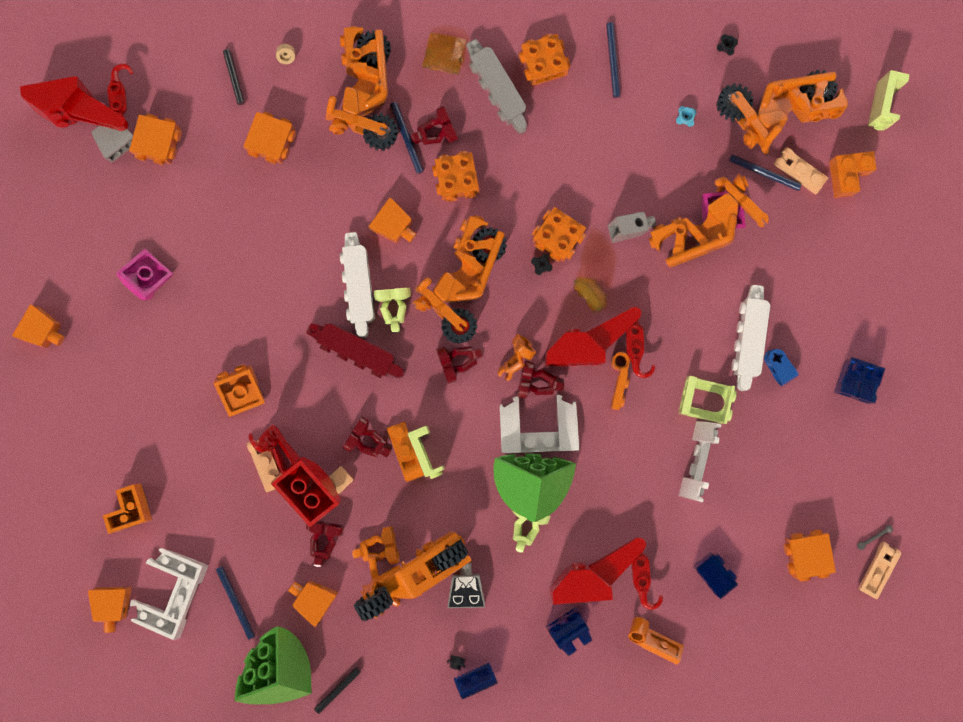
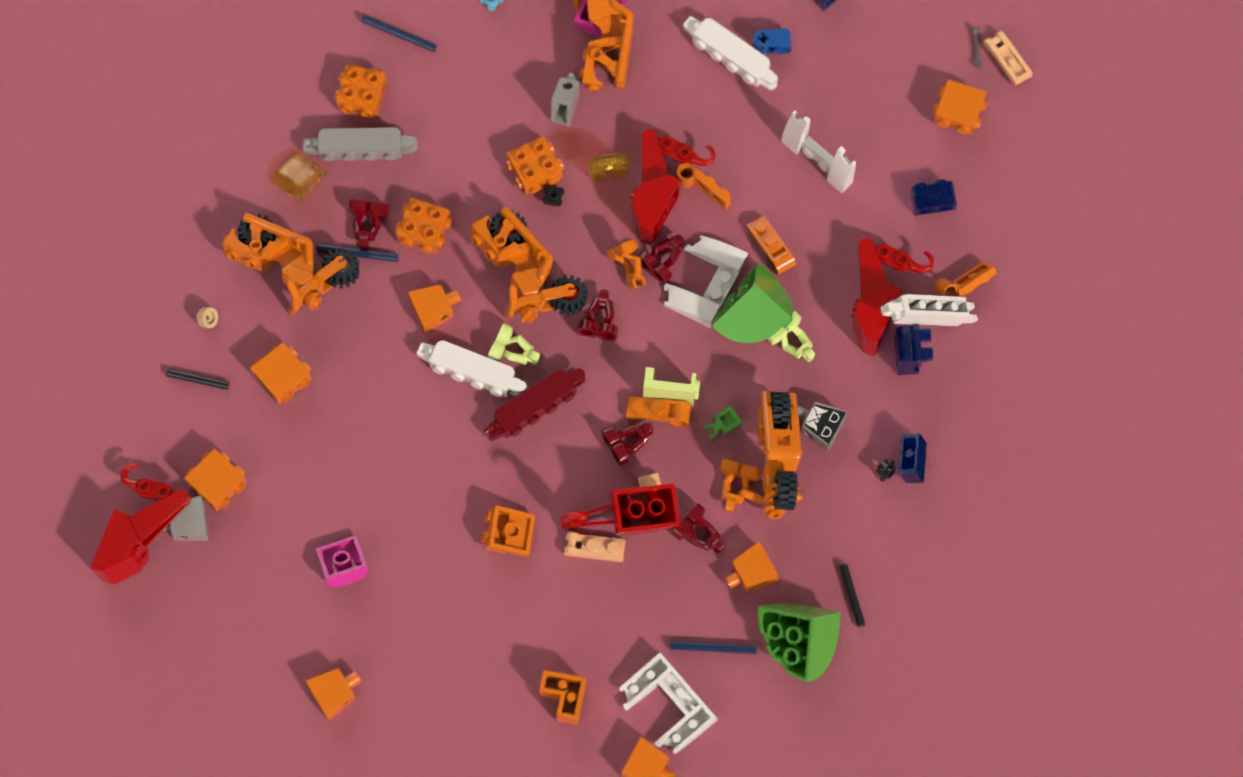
camera: 65 degrees left, 15 degrees down
(426, 510) = (724, 421): none -> bright green plate
(598, 464) = (772, 245): none -> orange plate
(606, 631) = (930, 310): none -> white hinge
(725, 391) = (744, 123): yellowish green panel -> none

